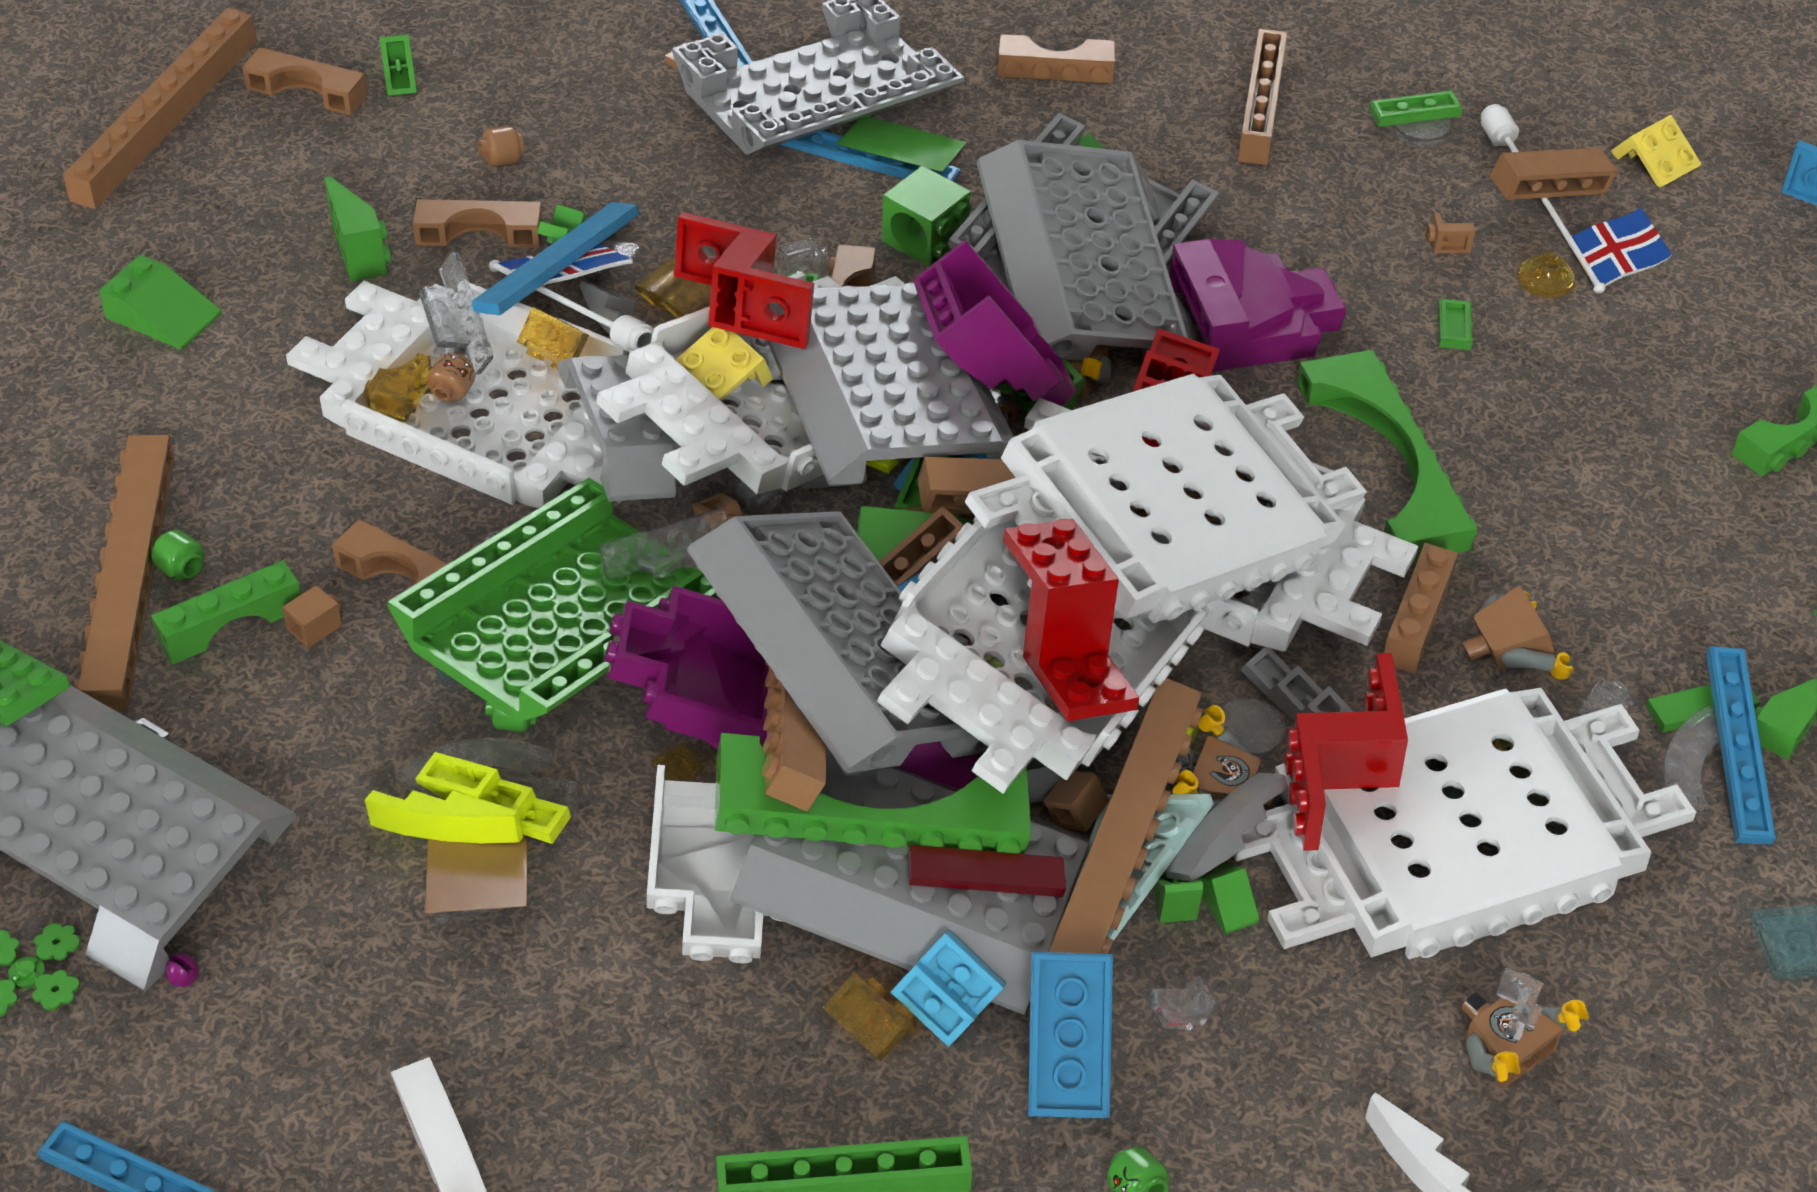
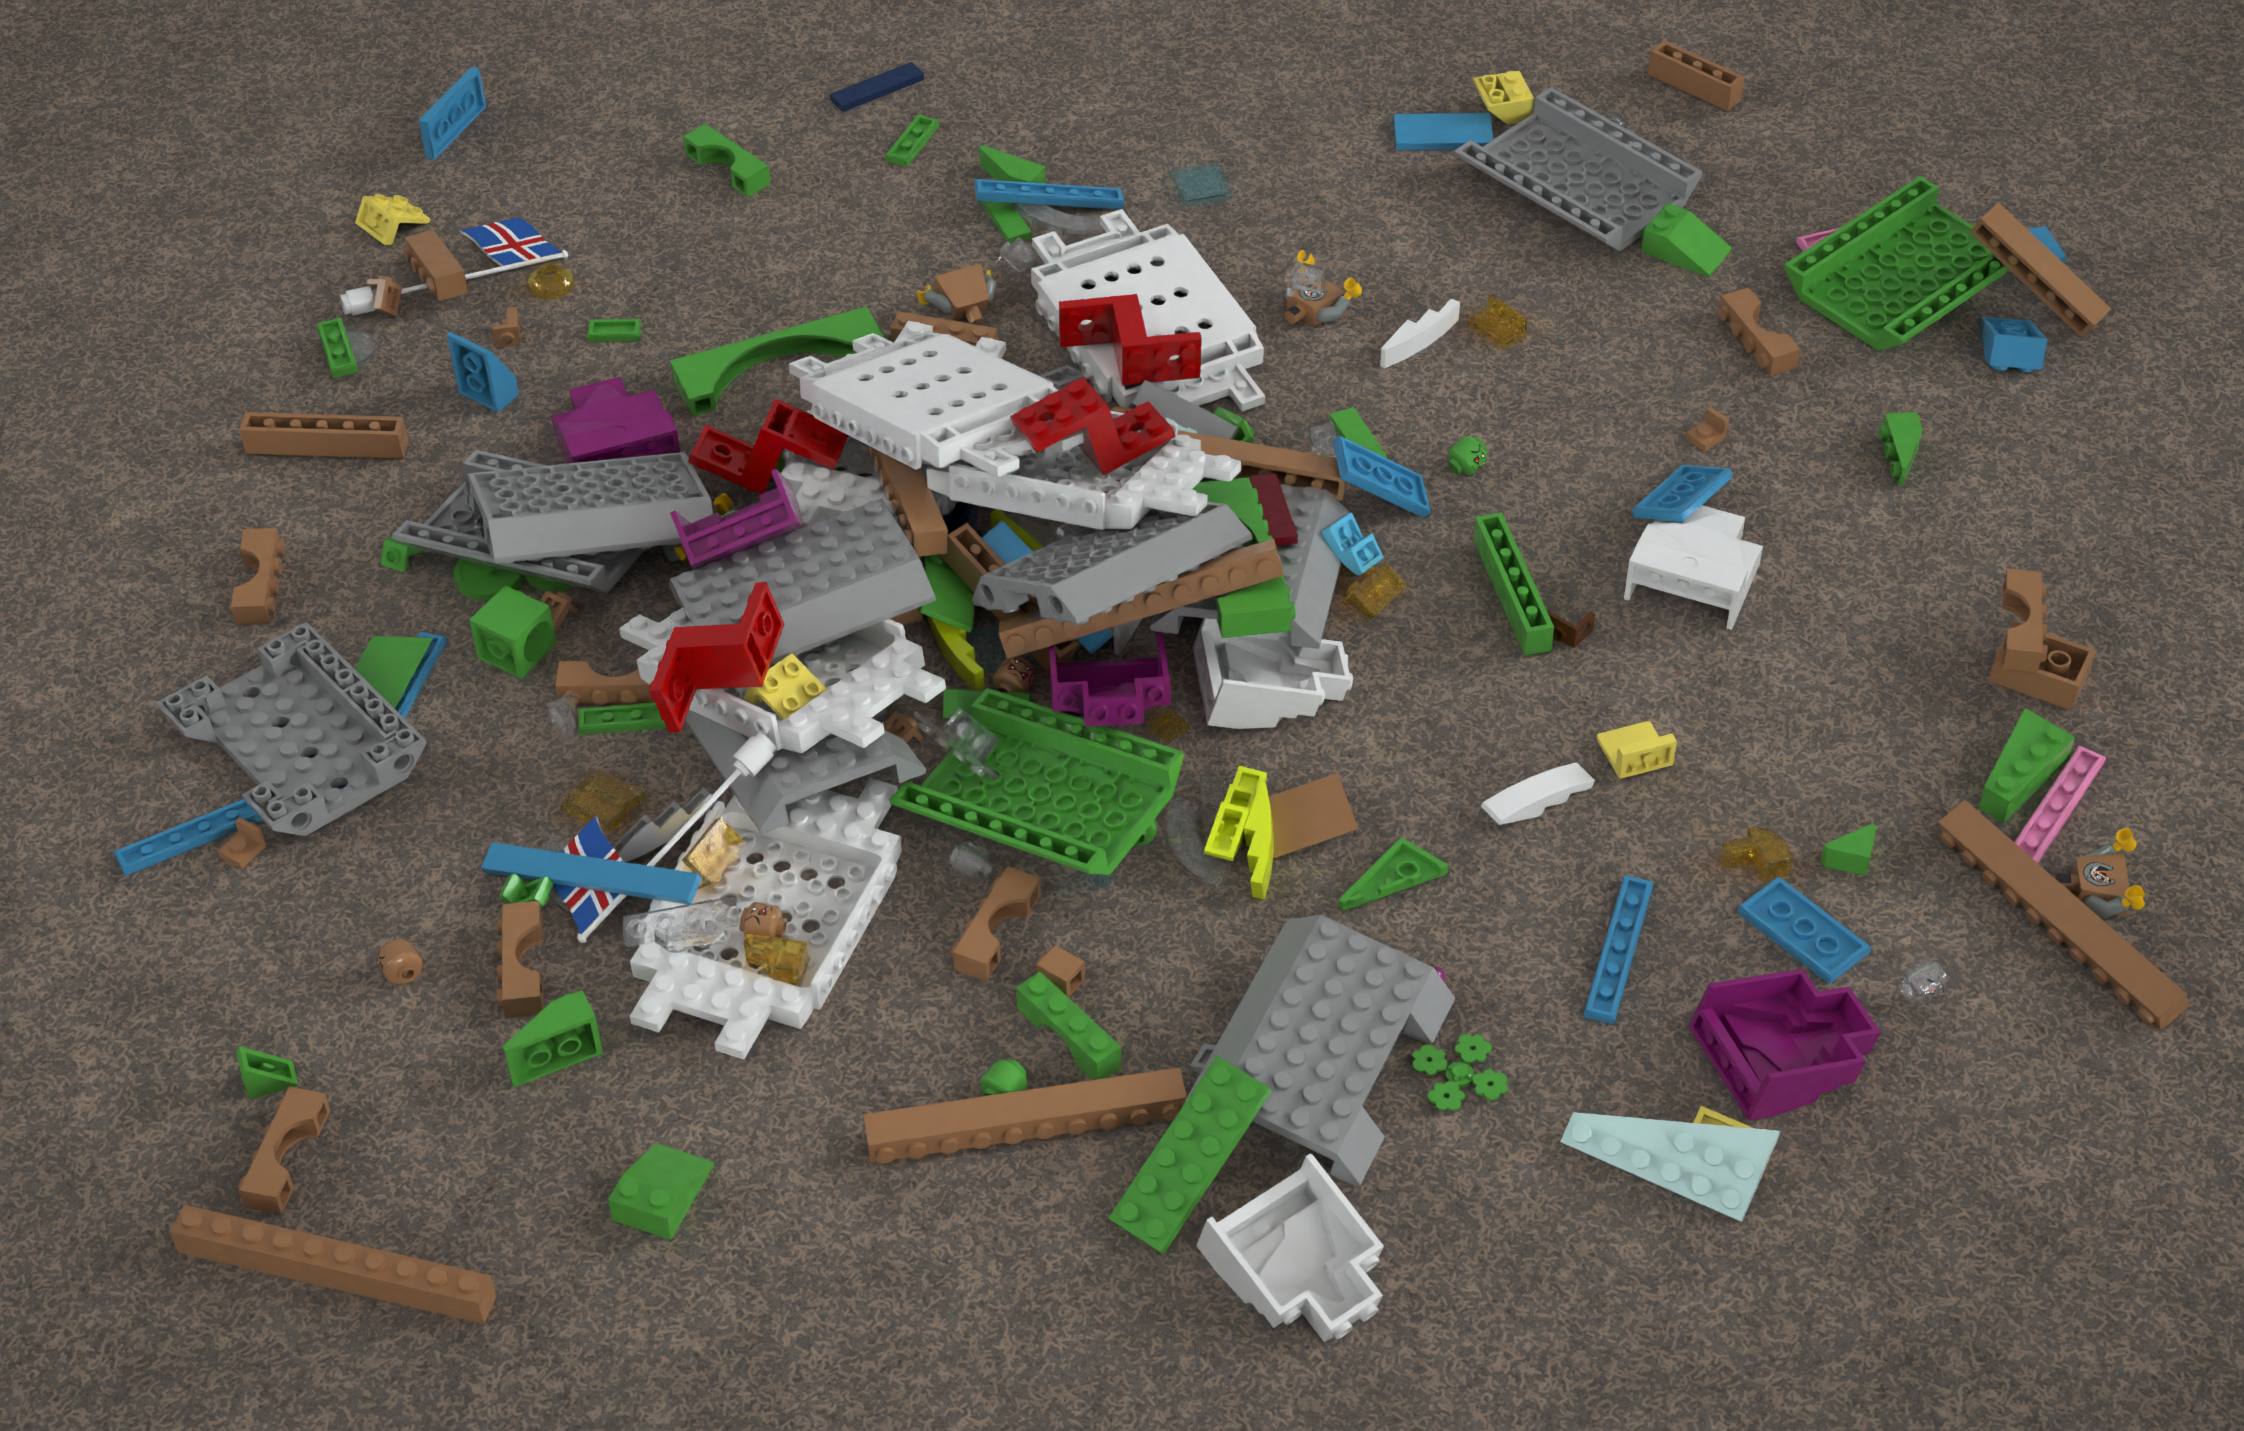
camera: 95 degrees left, 0 degrees up
(362, 959) = (1395, 871): none -> bright green wing
(1200, 1053) = (1352, 427): none -> bright green tile
(1350, 195) = (481, 374): none -> dark azure slope
(1501, 138) = (386, 296): none -> medium nougat bracket

